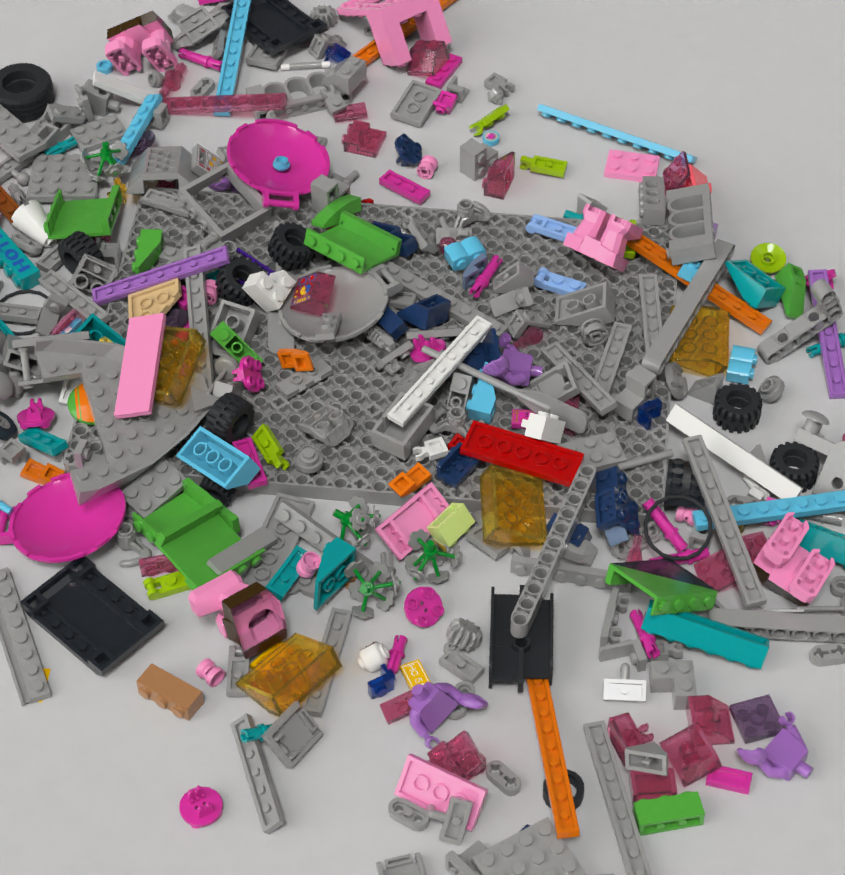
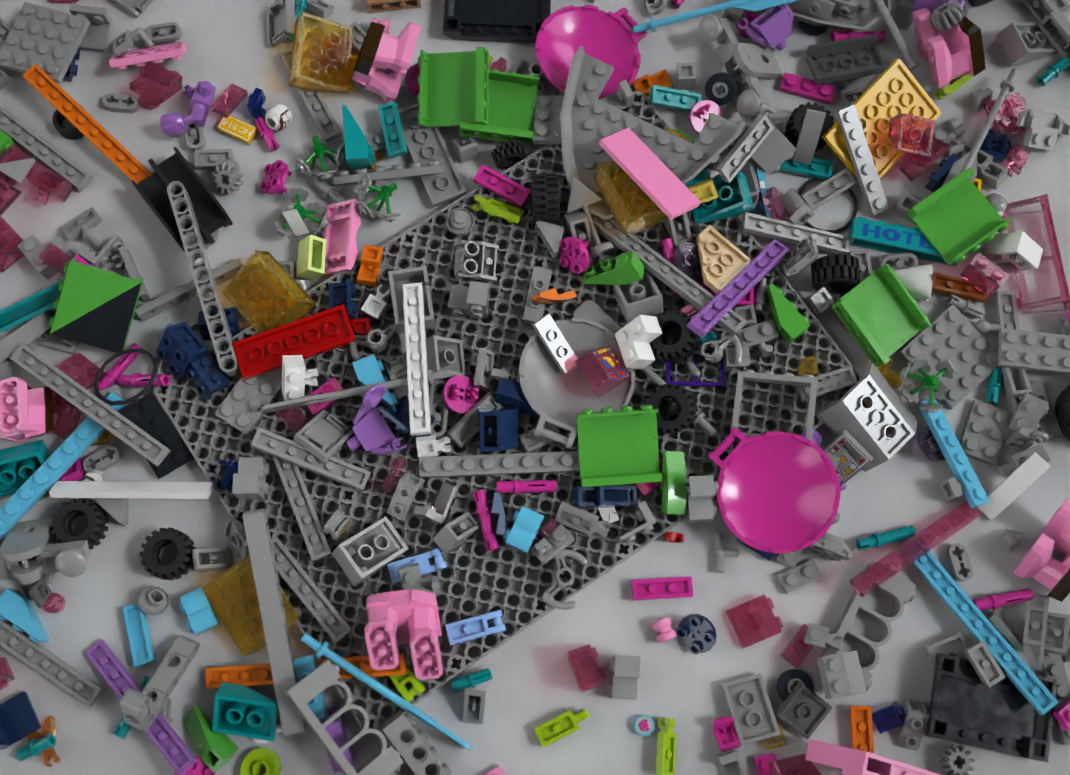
camera: 135 degrees right, 25 degrees up
(168, 219) = (808, 367): none -> clear yellow tile
(173, 79) = (999, 557): clear pink axle -> none
(218, 460) = (517, 157): medium azure slope -> none
(224, 122) = (879, 539): none -> teal pin
(241, 550) = (435, 112): light grey tile -> none
(247, 520) = (465, 148): none -> light grey slope
(254, 32) = (984, 664): none -> light grey plate
(255, 396) = (551, 236): none -> light grey slope
(281, 163) = (774, 496): medium azure plate -> none
(308, 65) = (890, 695): light grey bar -> none
(308, 564) = (379, 138): bright pink wheel -> none
(356, 398) = (470, 300): none -> light grey brick
(376, 99) = (788, 678): none -> black bush
(384, 207) = (643, 514): none -> light grey bracket
(385, 83) = (803, 710): none -> dark grey tile
(444, 280) = (526, 486): none -> dark pink pin
(572, 270) = (412, 578): none -> light grey plate
(627, 203) = (323, 650): none -> medium azure piece
(635, 552) = (148, 334): clear pink cone -> none
(645, 460) = (201, 428): light grey bar -> none
(668, 655) = (55, 257): none -> clear pink bracket
(798, 380) = (138, 635): none -> medium azure plate

